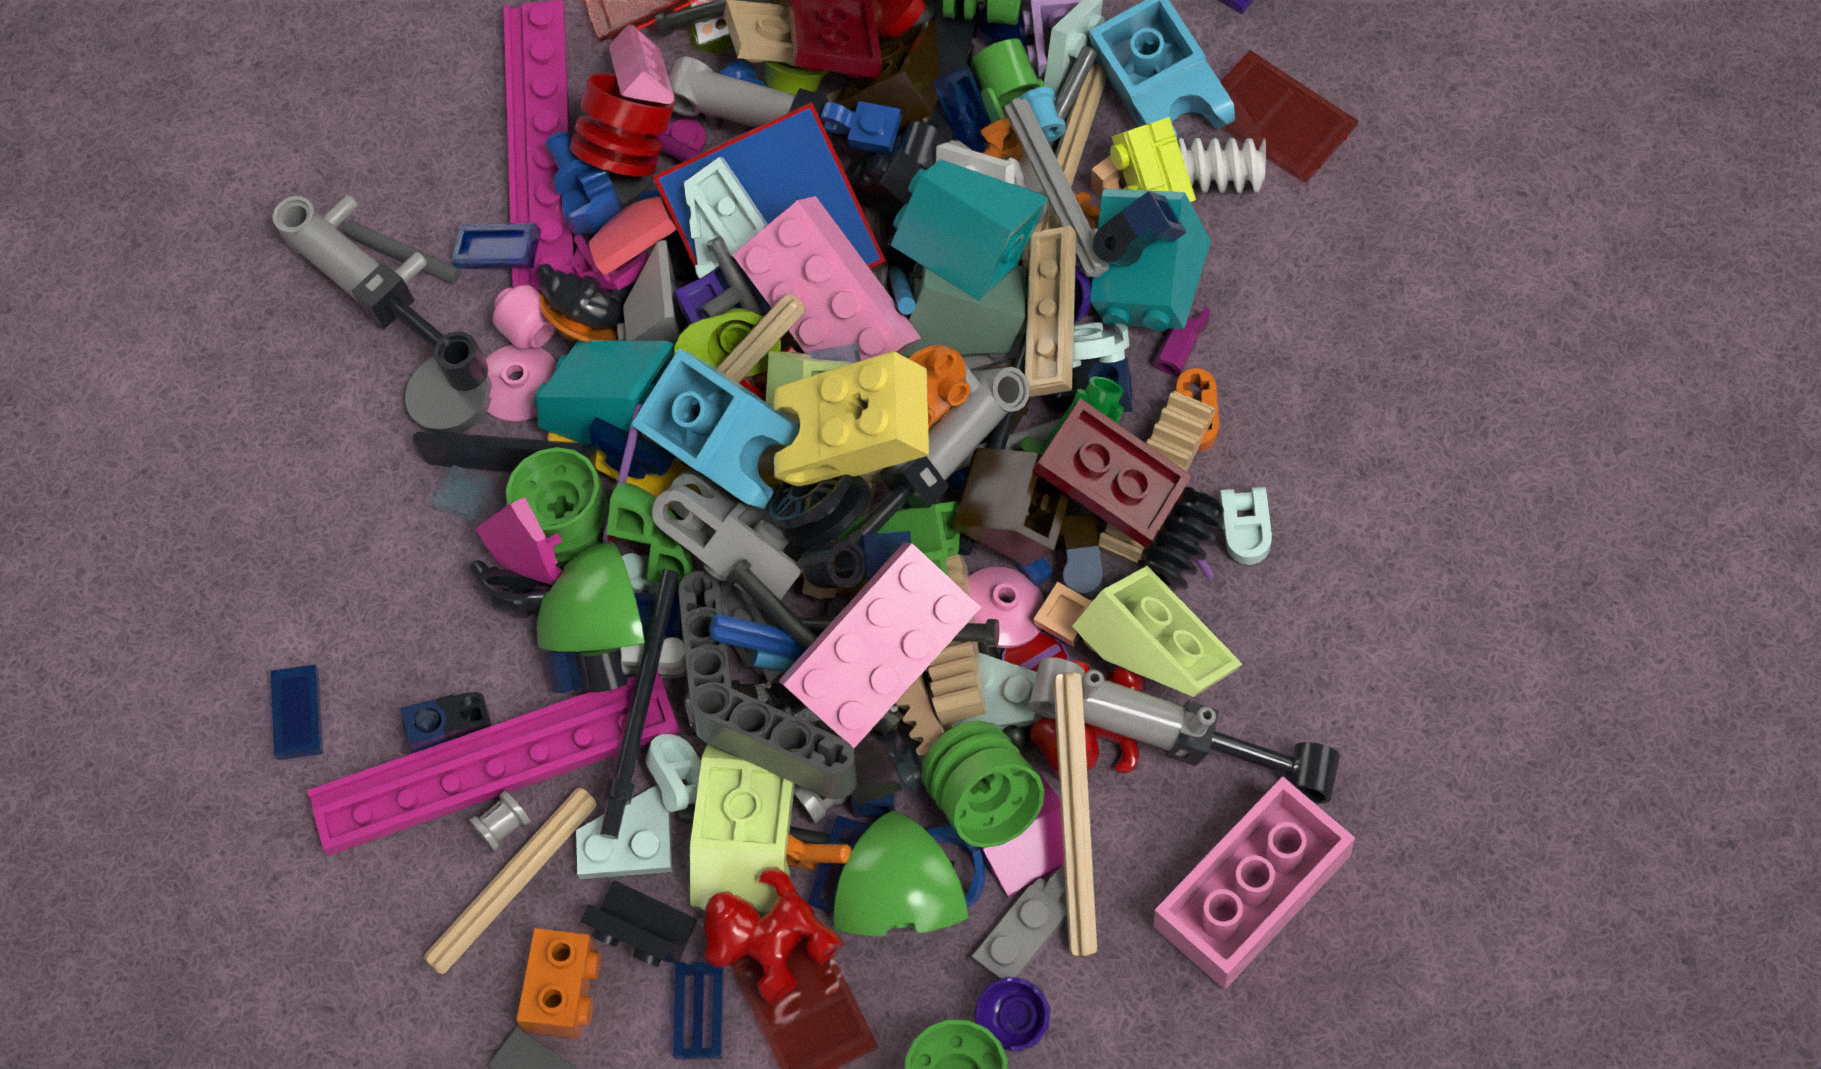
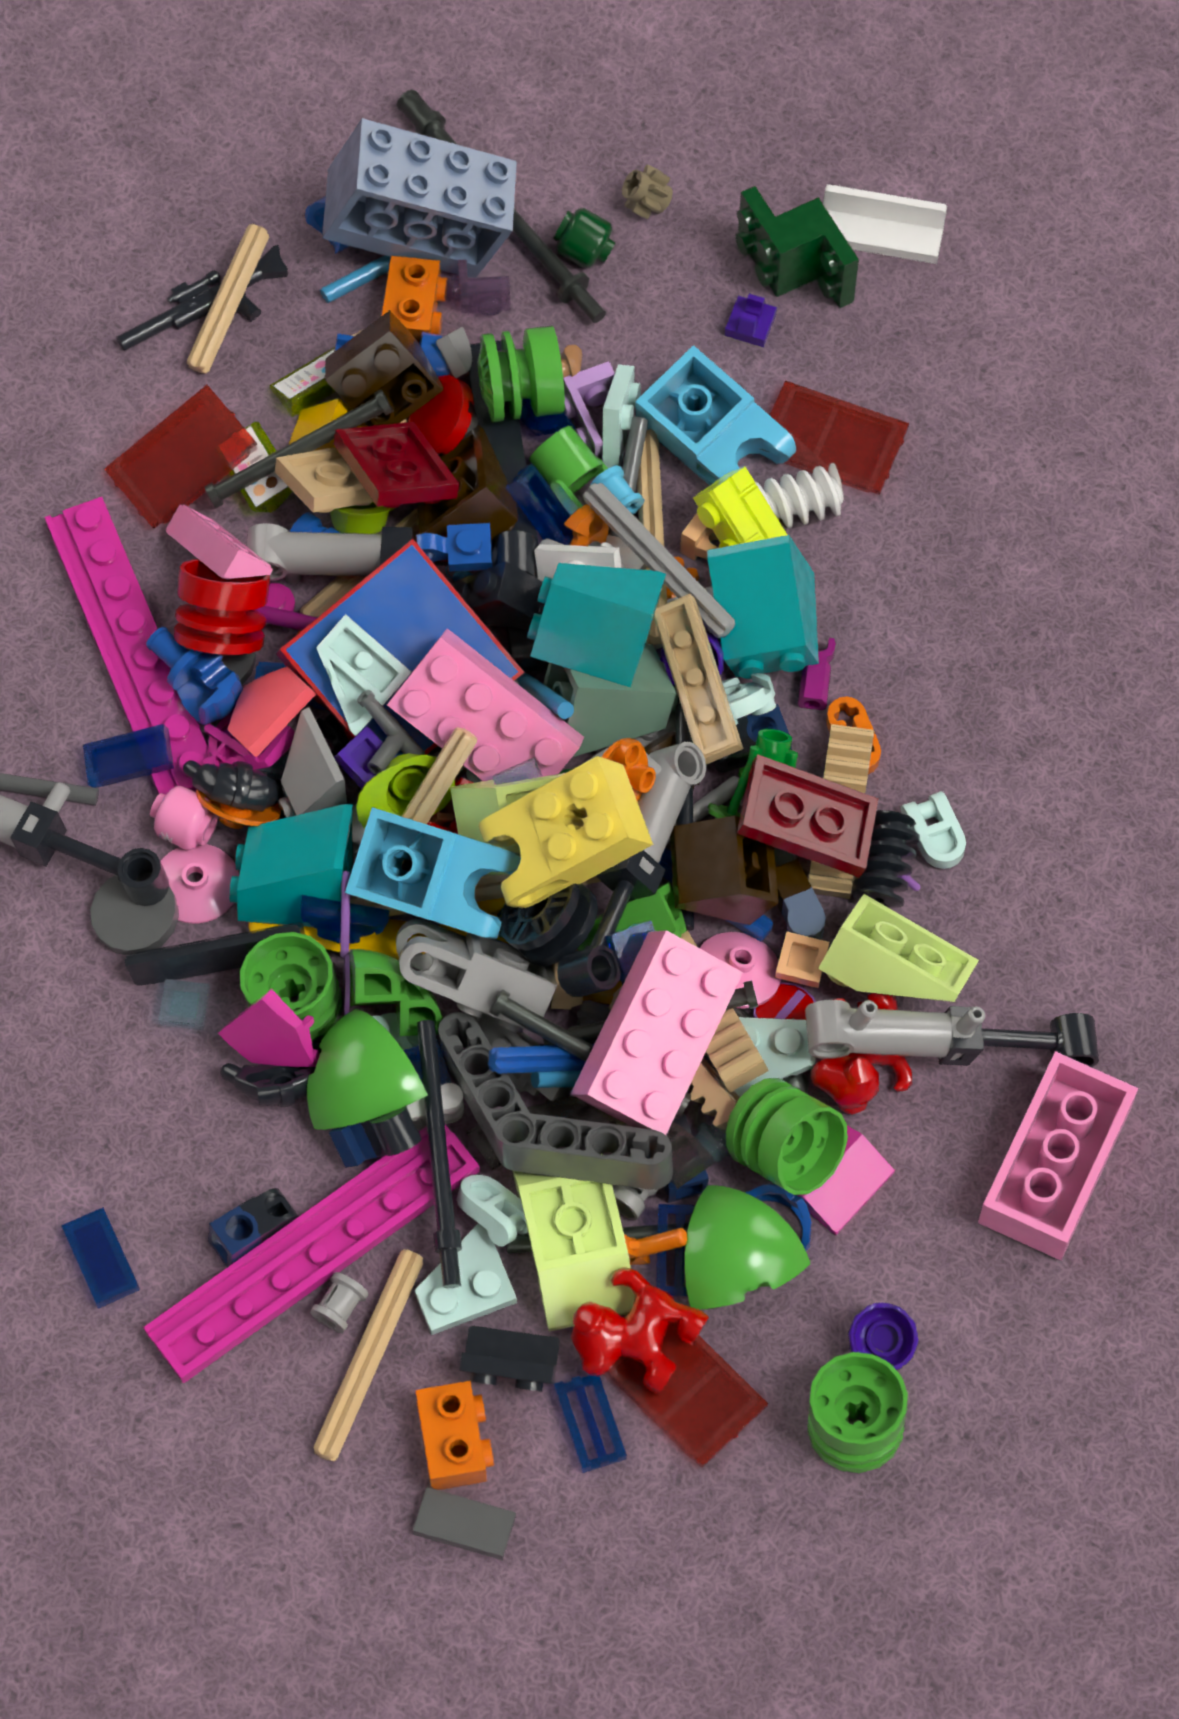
camera: 25 degrees left, 0 degrees up
(1024, 928) = (864, 1256): light grey hinge -> none
(1075, 813) = (883, 1138): tan axle -> none
(1136, 228) = (746, 589): leg -> none

